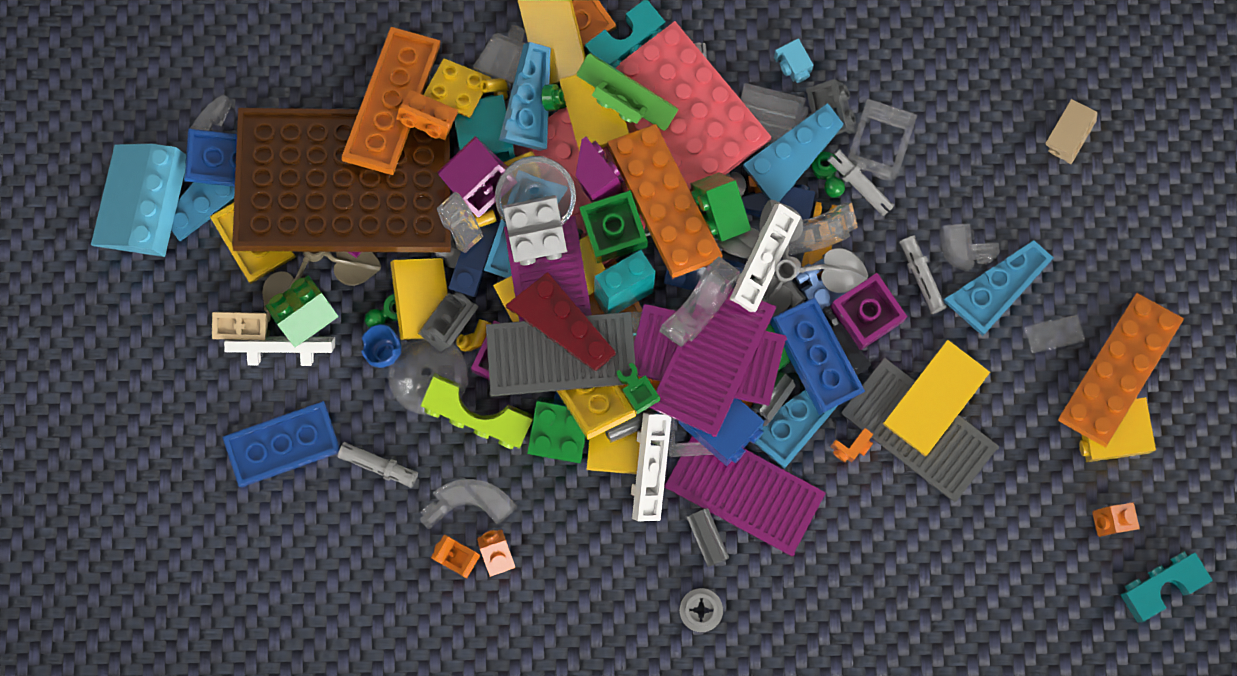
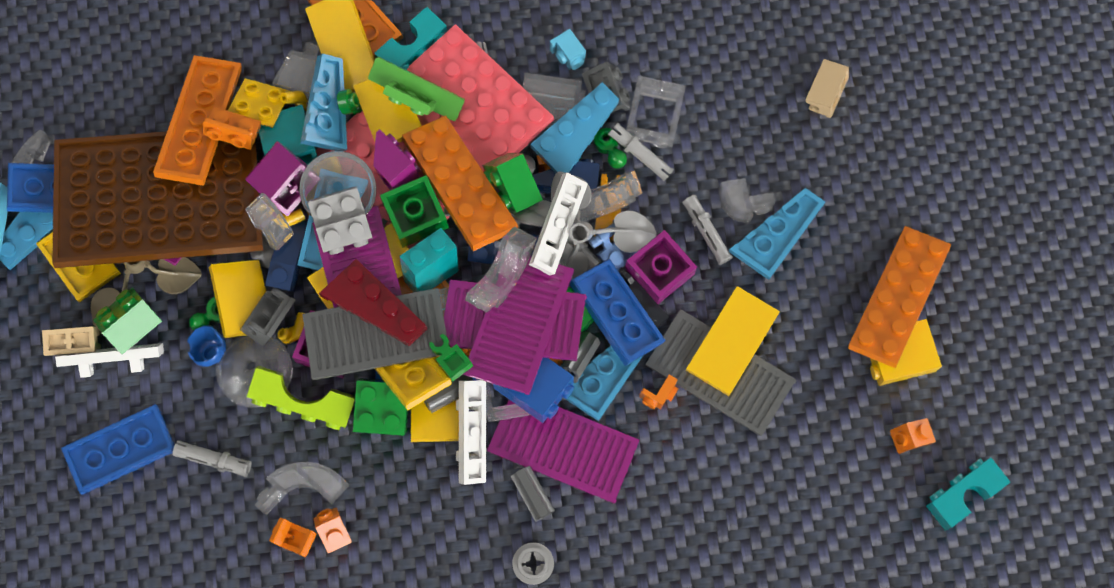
camera: 10 degrees left, 5 degrees down
(1054, 334) = (835, 271): clear slope -> none

